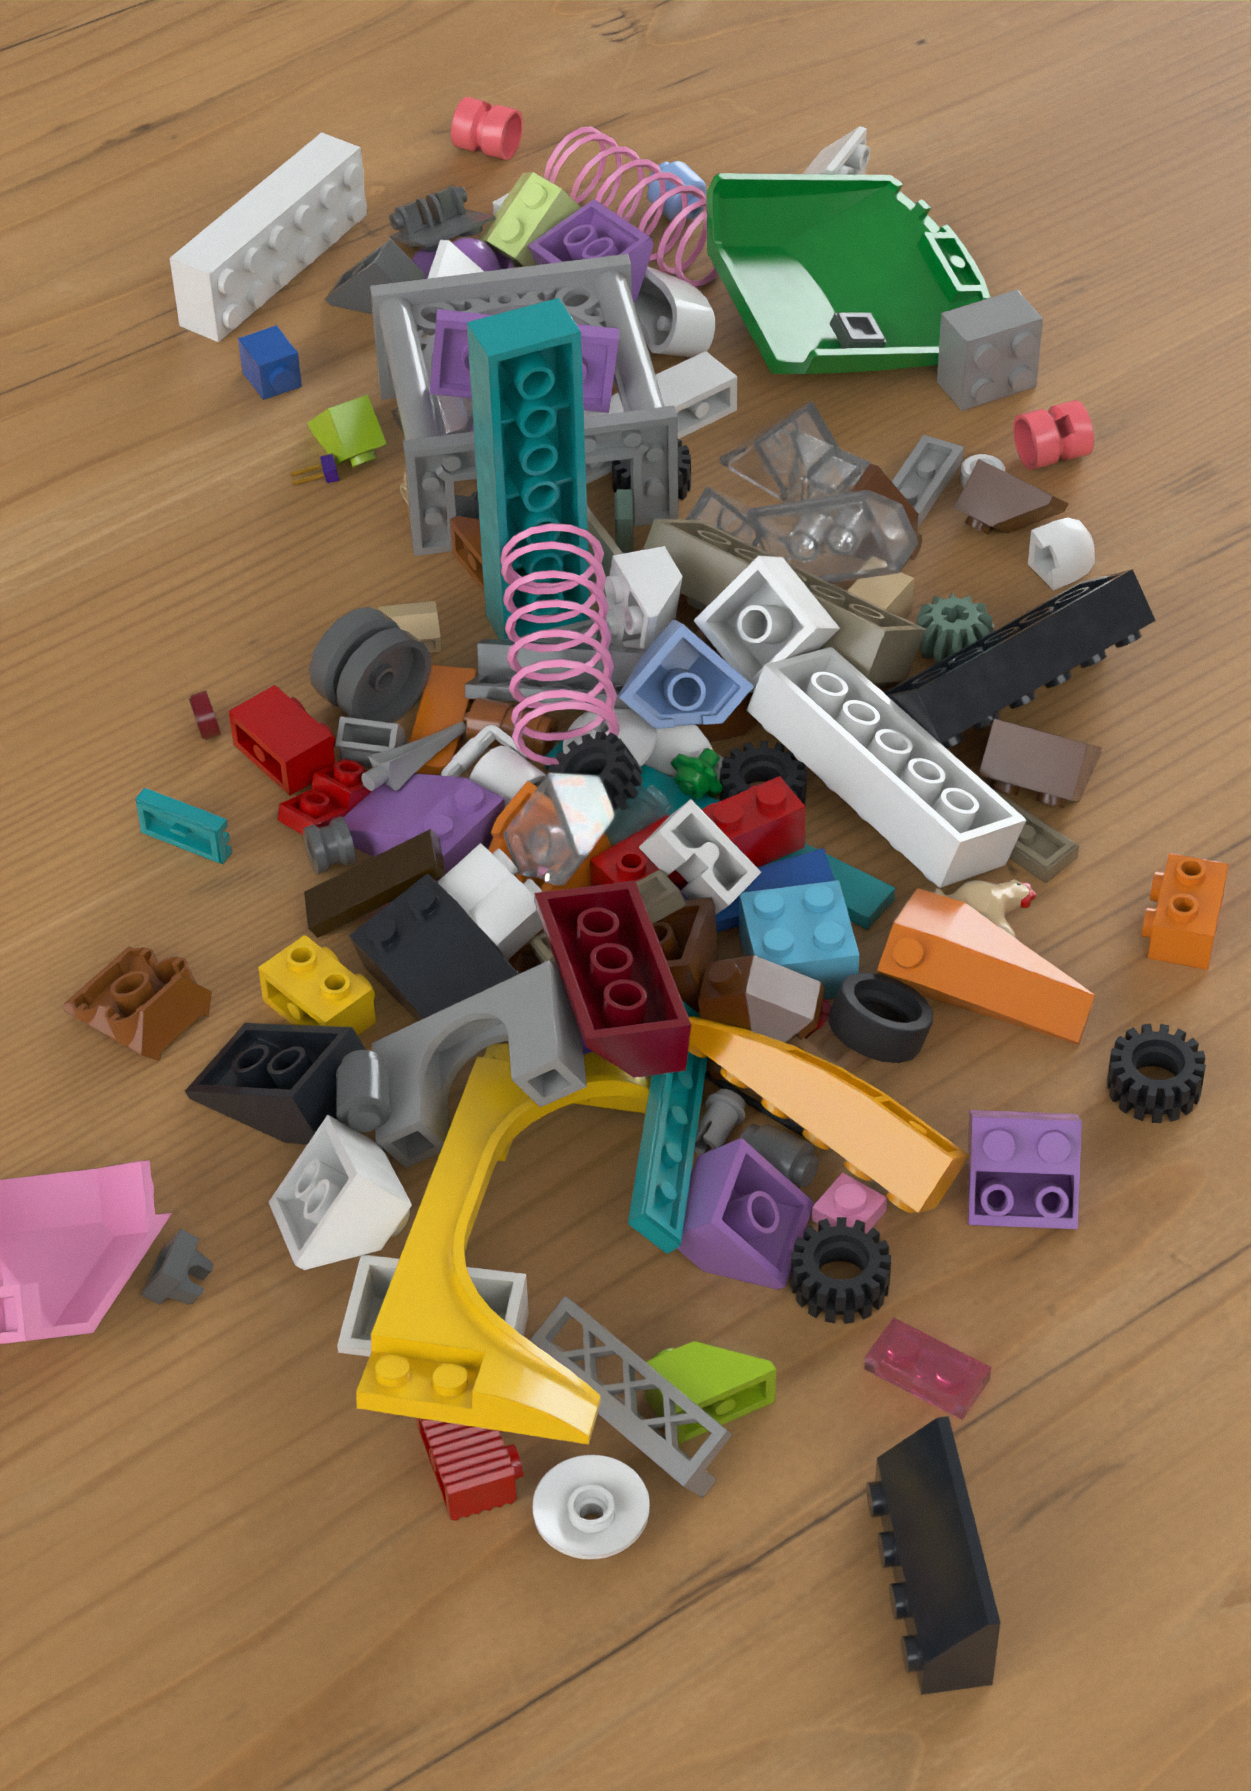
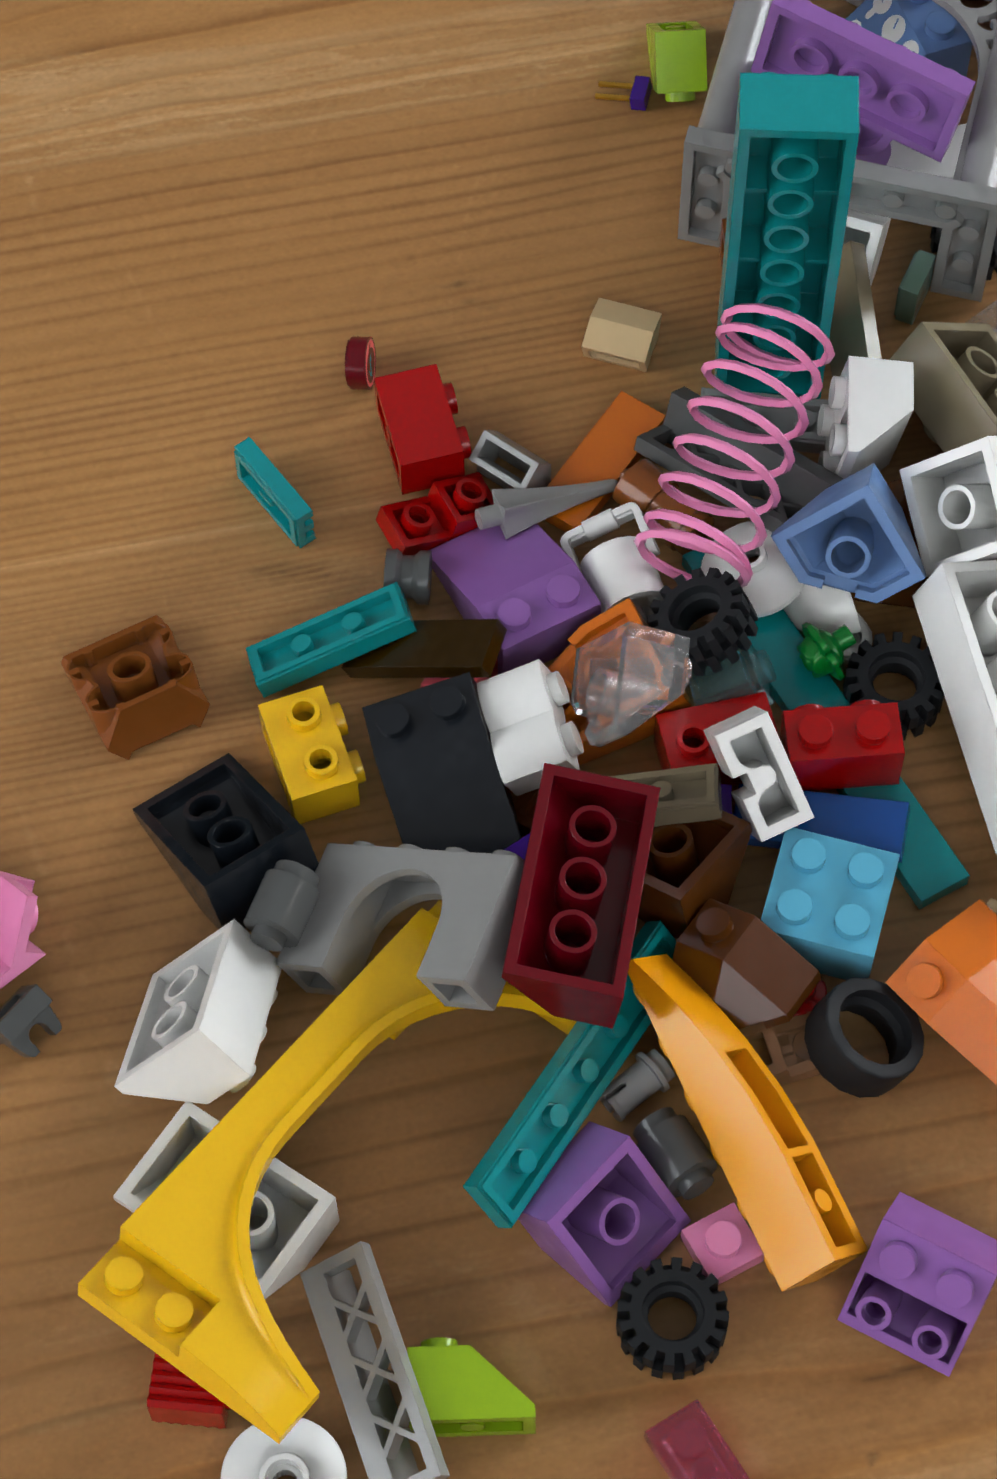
camera: 25 degrees right, 15 degrees up
(290, 907) = (330, 639): none -> teal tile
(370, 666) = (545, 380): dark grey wheel -> none

